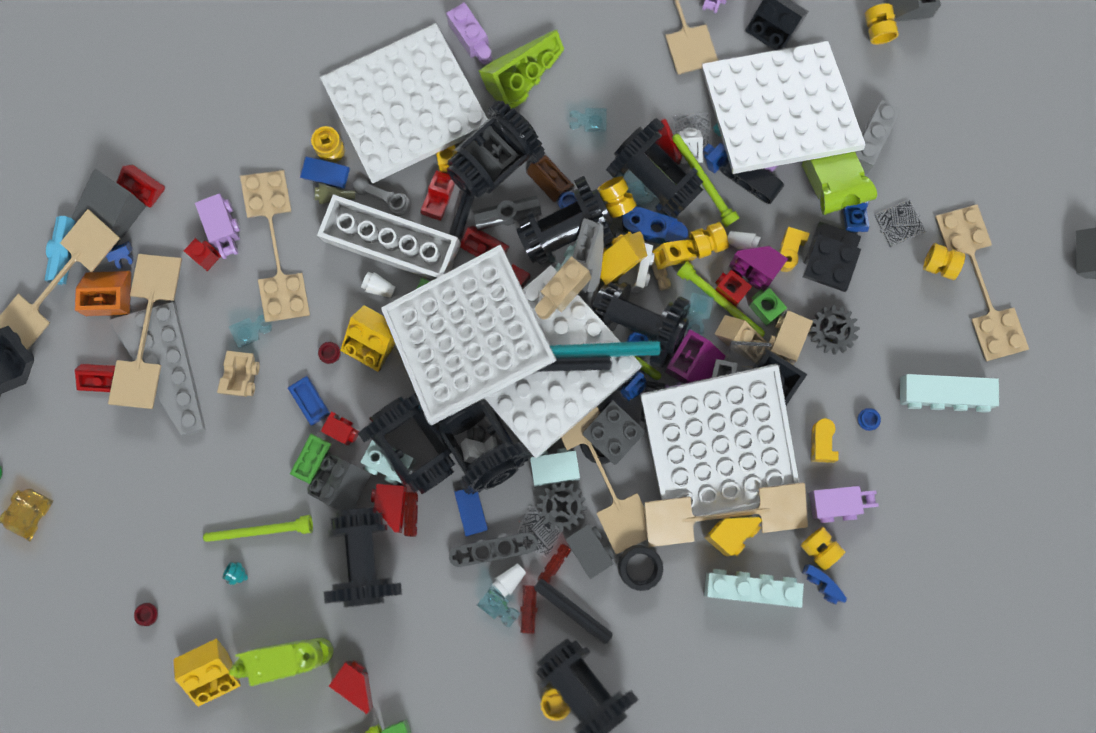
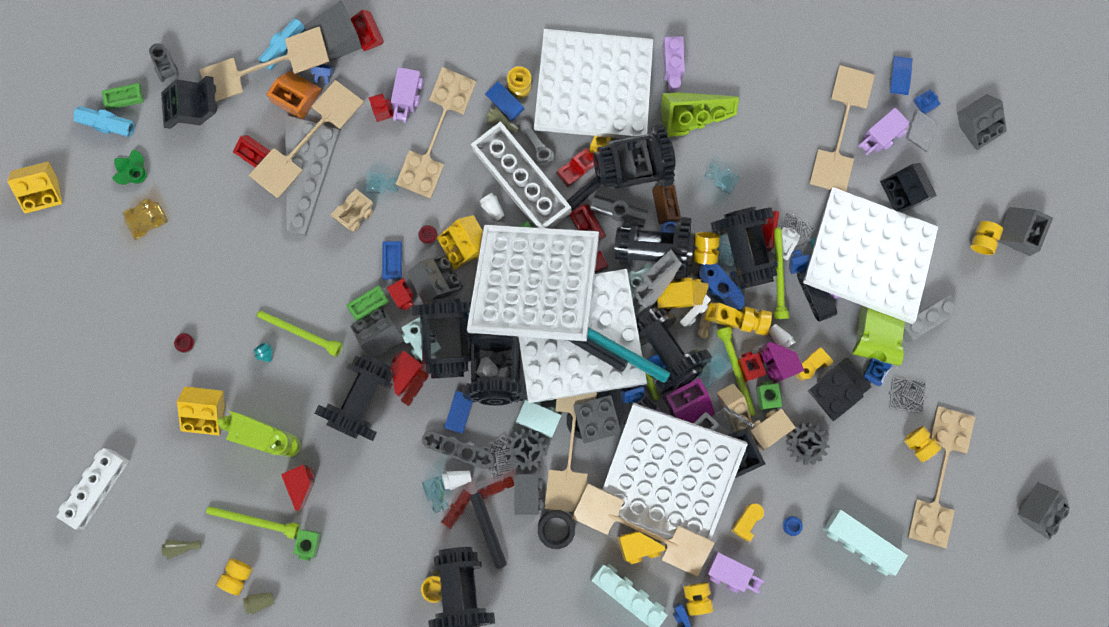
camera: 20 degrees right, 0 degrees up
(363, 392) = (434, 278): none -> dark grey slope
(562, 288) = (623, 291): tan brick -> none

